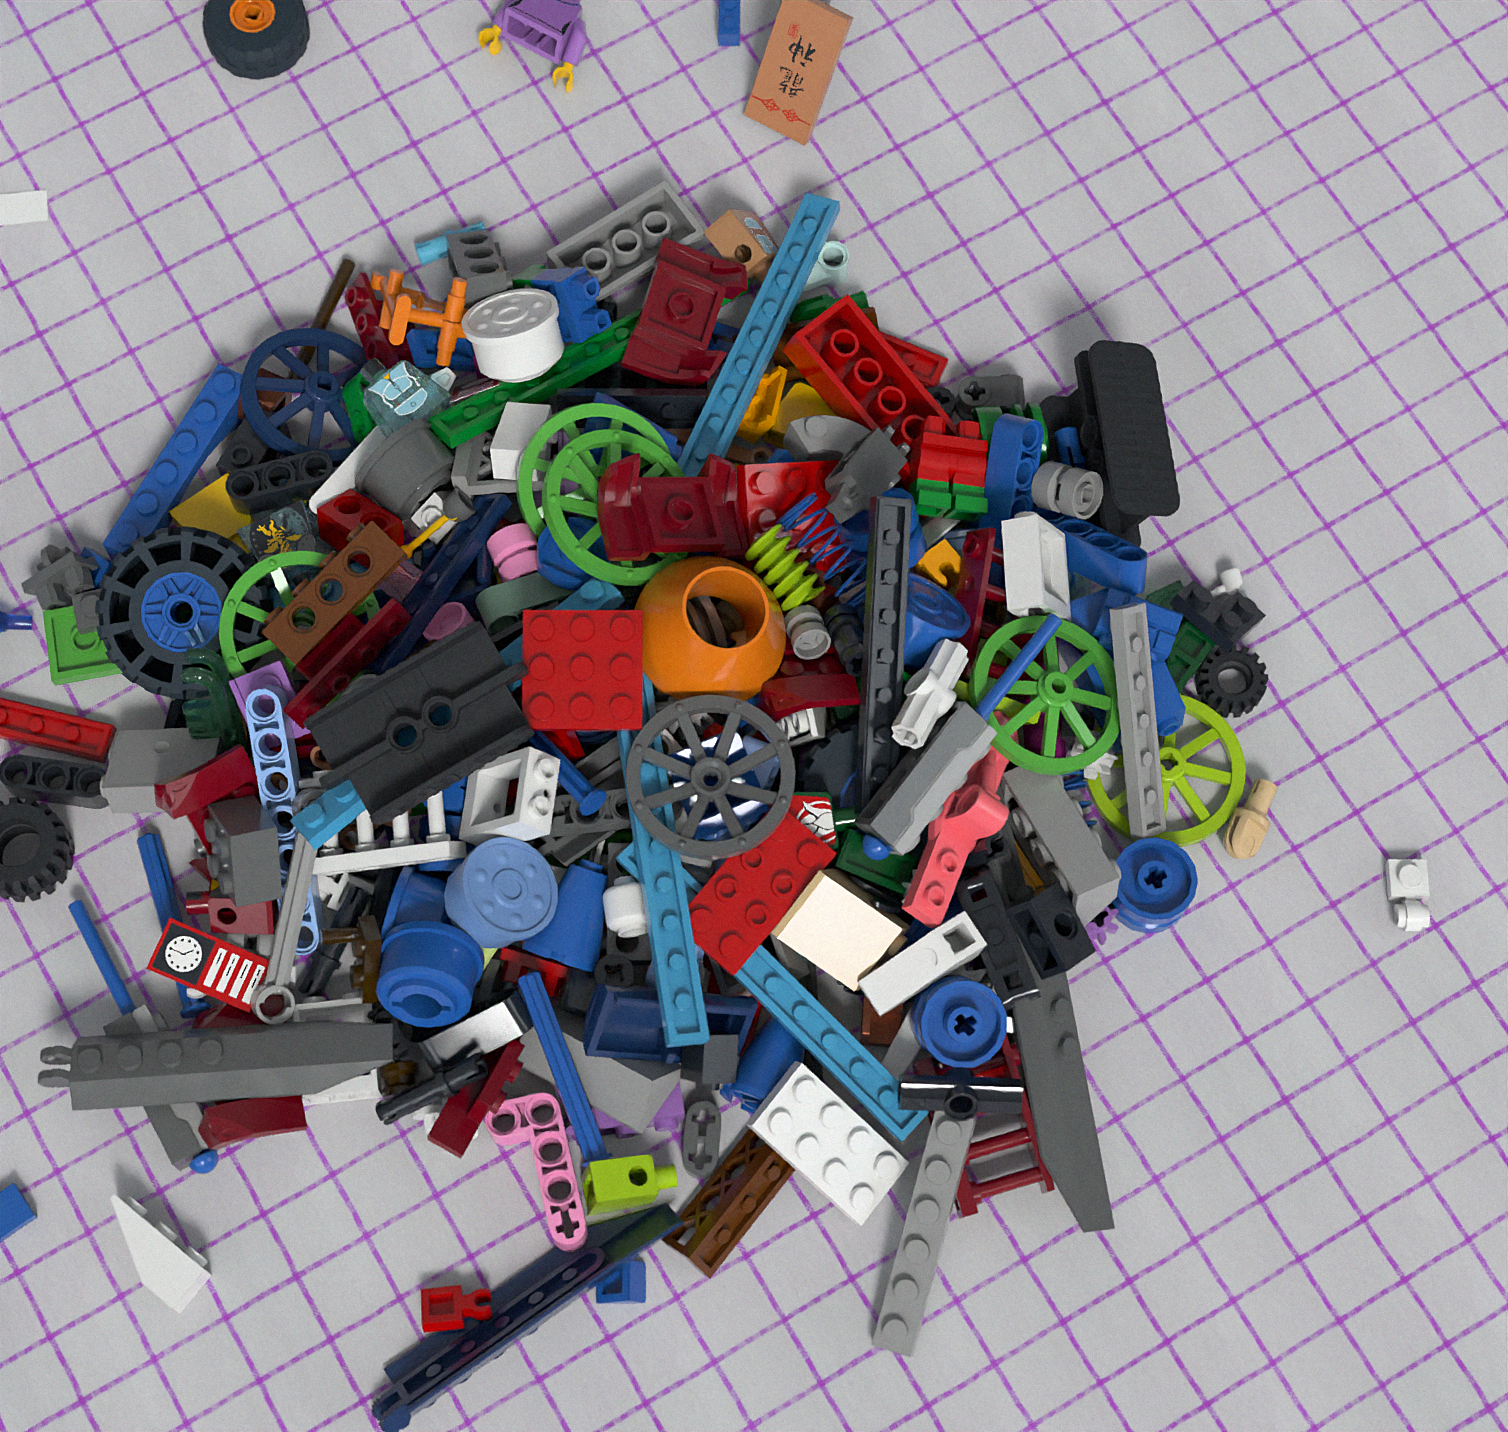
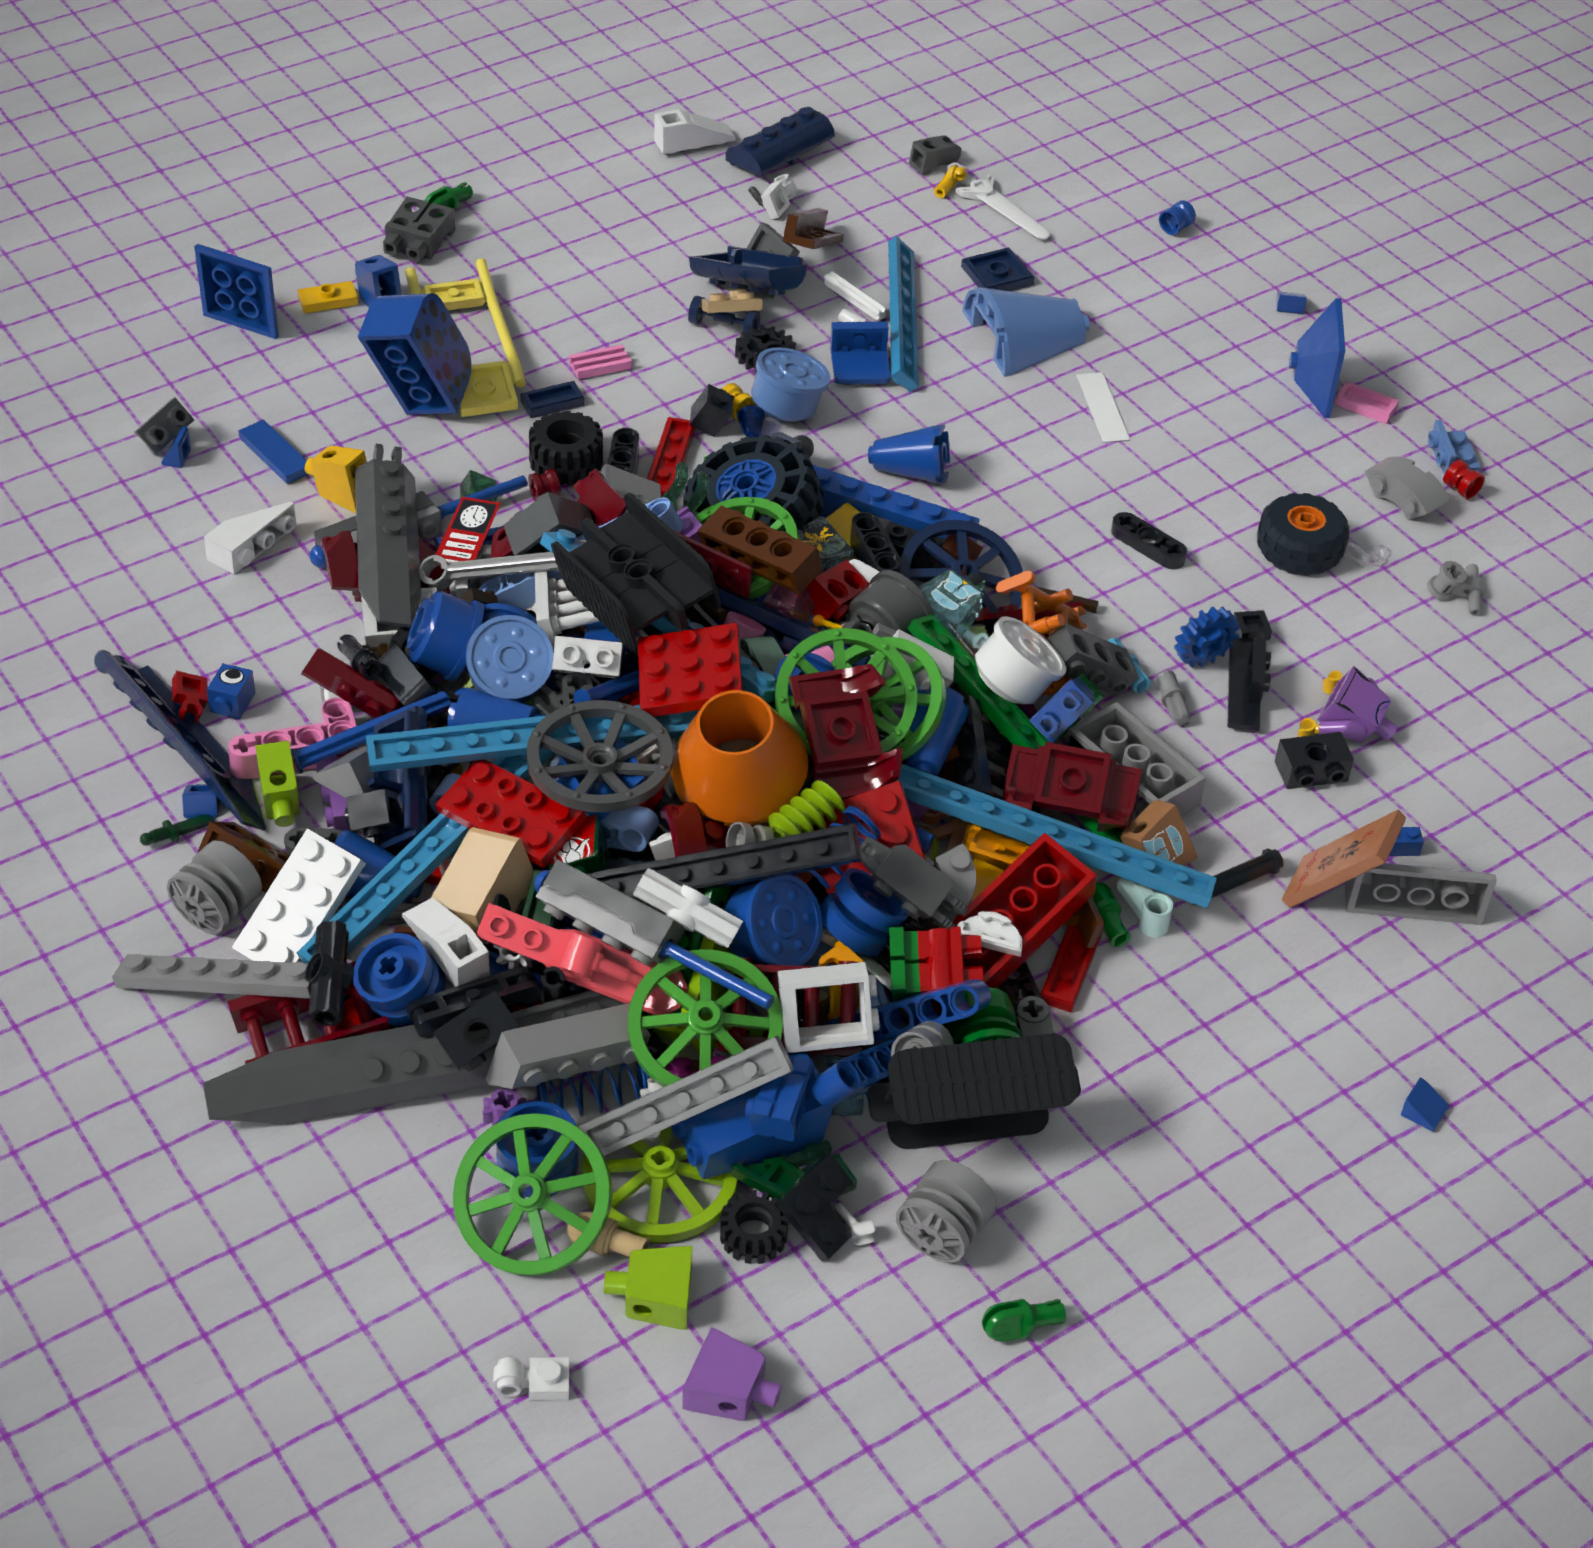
camera: 85 degrees right, 25 degrees down
(53, 1139) = (336, 474): none -> yellow torso
(74, 968) = (474, 483): none -> clear green slope
(76, 430) = (914, 454): none -> blue cone
(87, 879) = (544, 483): none -> dark red wheel
(213, 200) = (1166, 549): none -> black beam
(398, 105) = (1253, 624): none -> black plate
(435, 148) = (1207, 636): none -> blue gear
(449, 1256) = (231, 691): none -> blue brick
(487, 122) = (1247, 682): none -> black bracket
(505, 202) = (1173, 697): none -> light grey axle
(616, 97) = (1314, 760): none -> black brick
(670, 1307) = (173, 831): none -> dark green piece
(758, 147) = (1268, 862): none -> black axle
(793, 1244) = (214, 887): none -> light grey wheel
(907, 410) = (995, 931): none -> white tile
(1071, 65) = (1424, 1106): none -> blue slope
(1227, 884) = (539, 1199): none -> bright green wheel
(1228, 497) = (946, 1211): none -> light grey wheel
(1306, 774) = (655, 1285): none -> lime torso
(1329, 444) = (1019, 1319): none -> green arm
(1410, 713) = (728, 1379): none -> medium lavender torso

